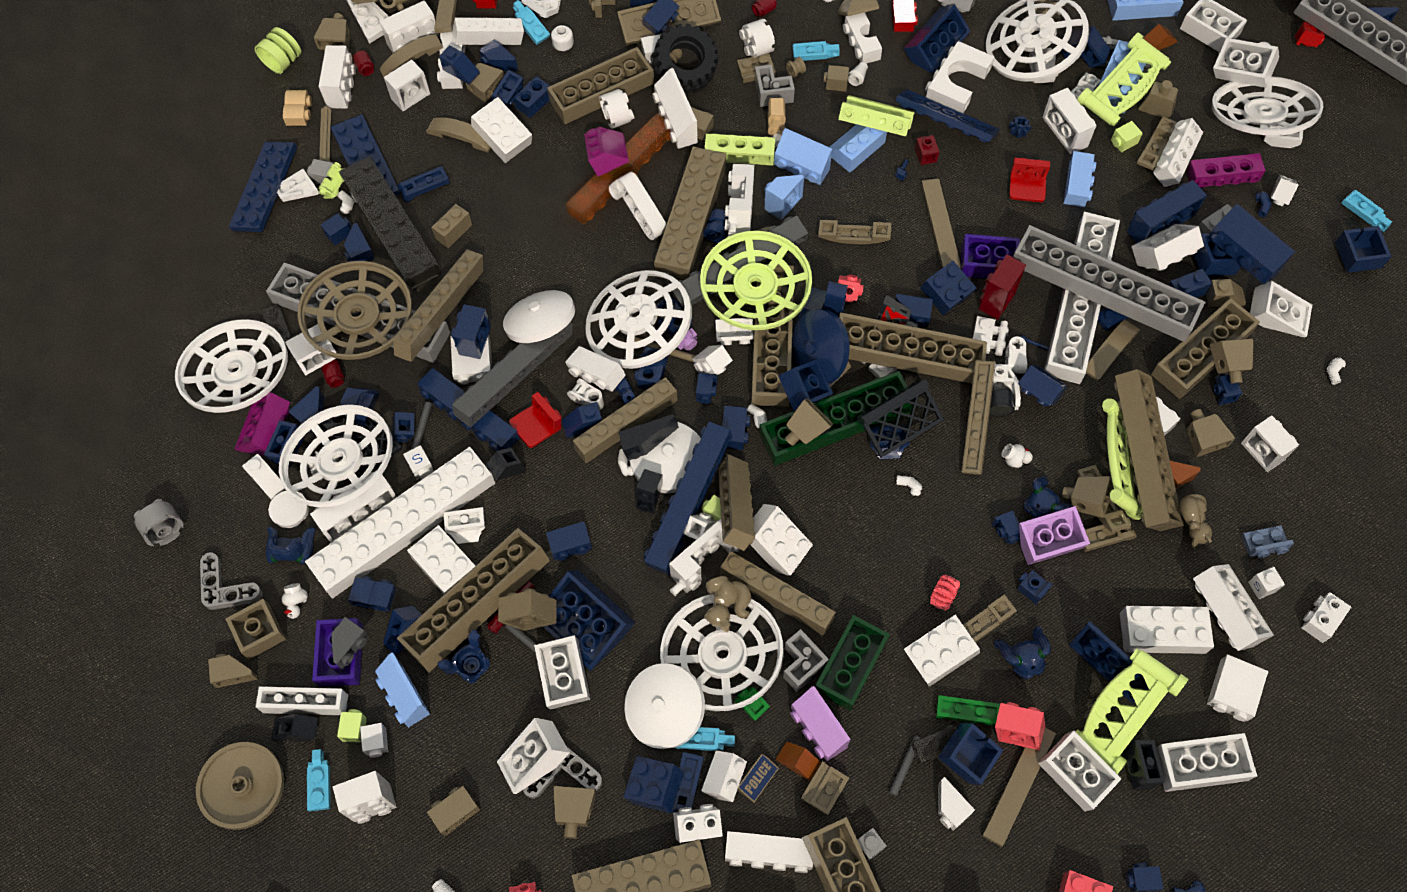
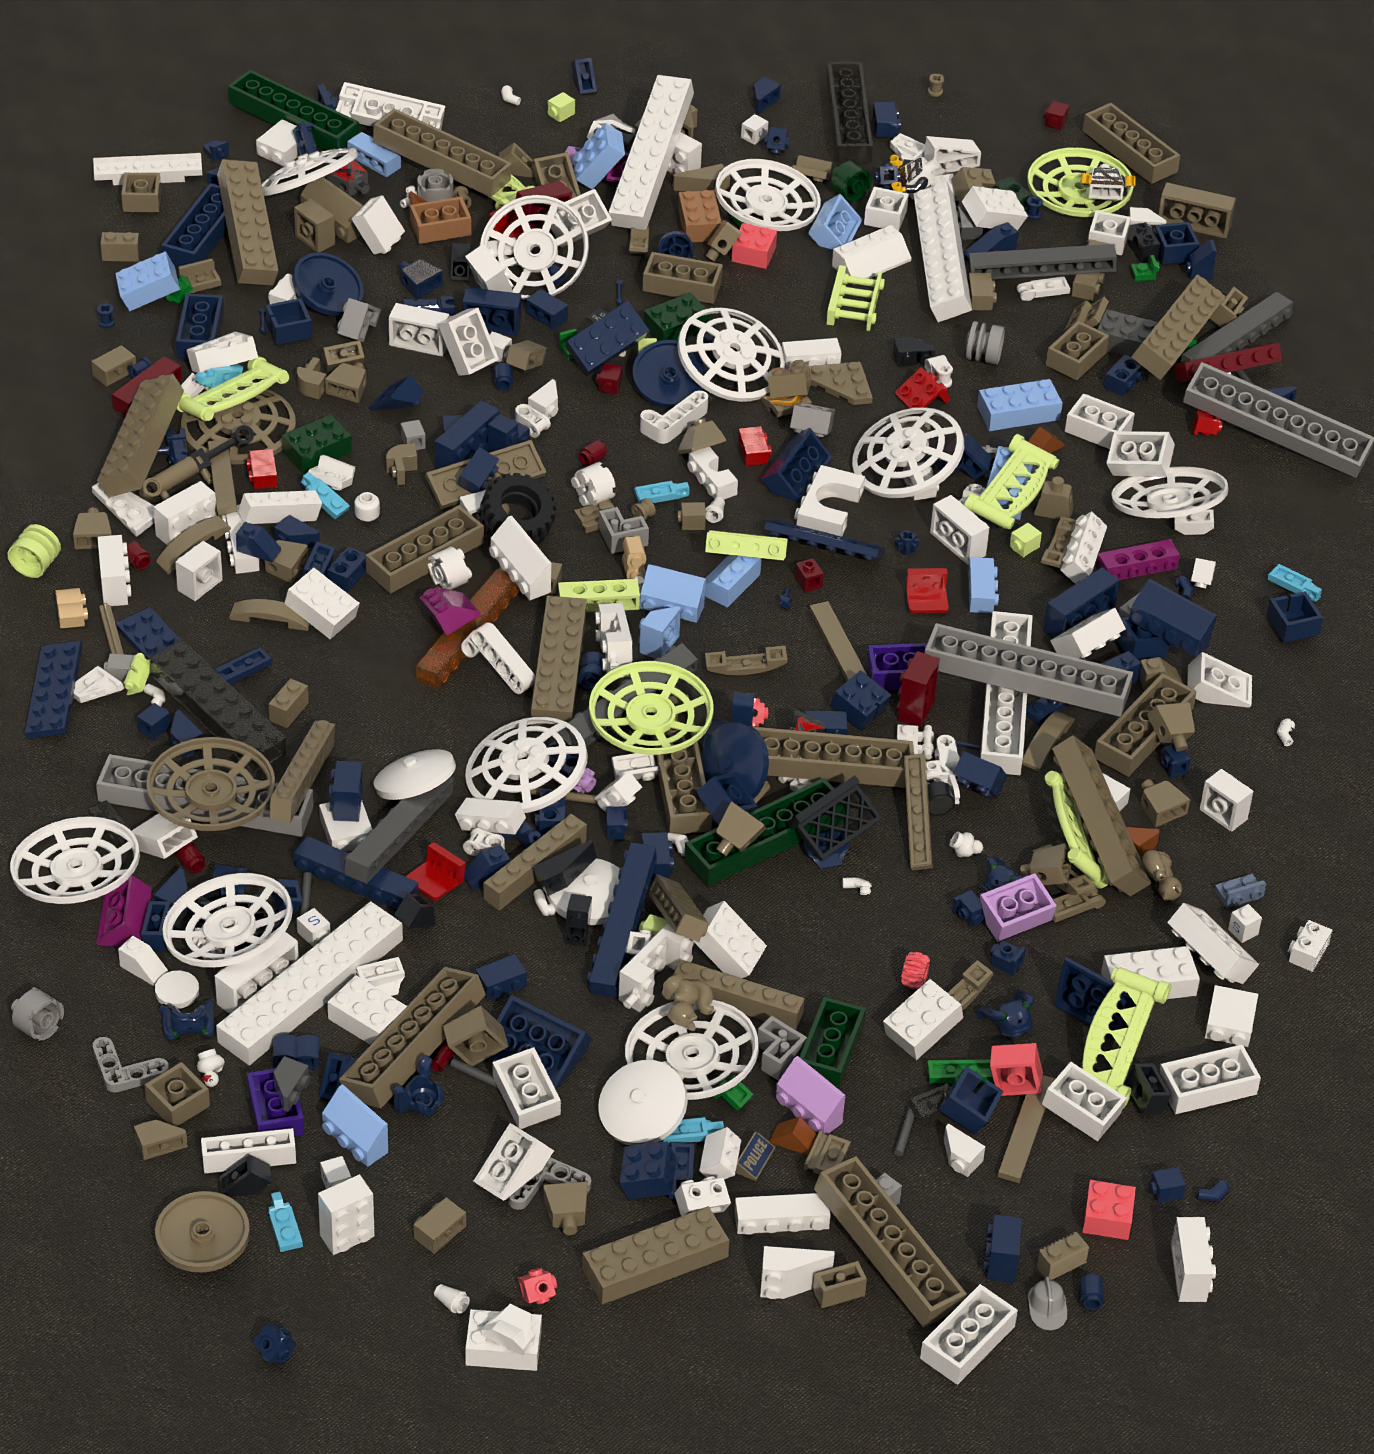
camera: 15 degrees left, 20 degrees down
(350, 725) = (308, 1169): yellowish green brick -> none

